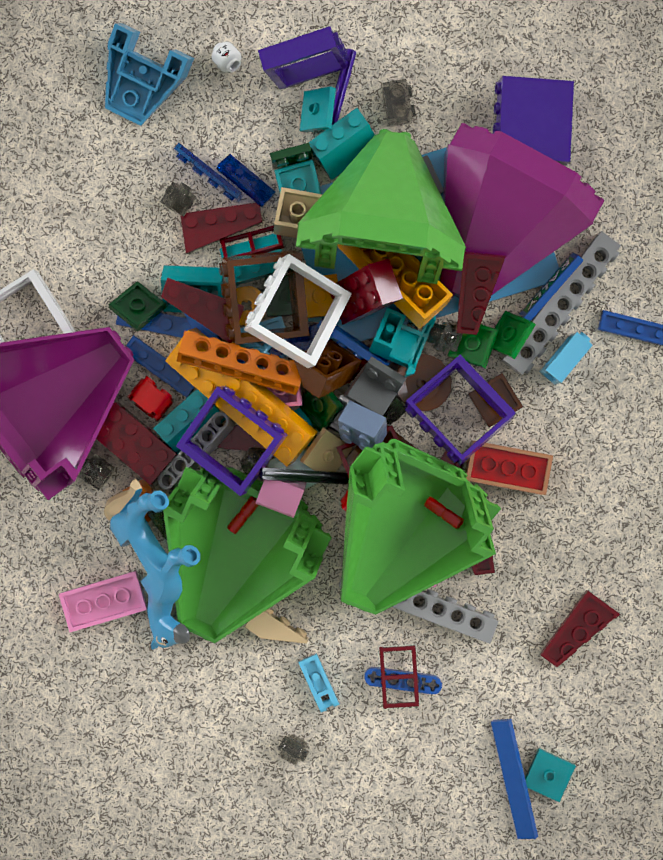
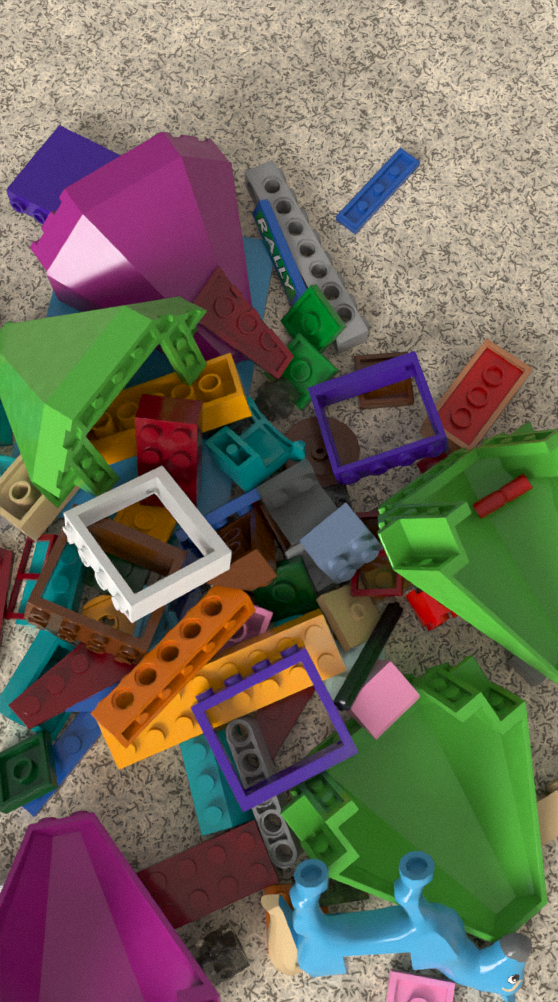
camera: 65 degrees left, 15 degrees down
(150, 399) = (159, 818): red brick -> none
(156, 364) = (124, 783): blue tile -> none
(241, 517) = (383, 772): red piece -> none
(251, 458) = (314, 717): clear smoke head -> none
(566, 357) = (373, 273): medium azure window -> none

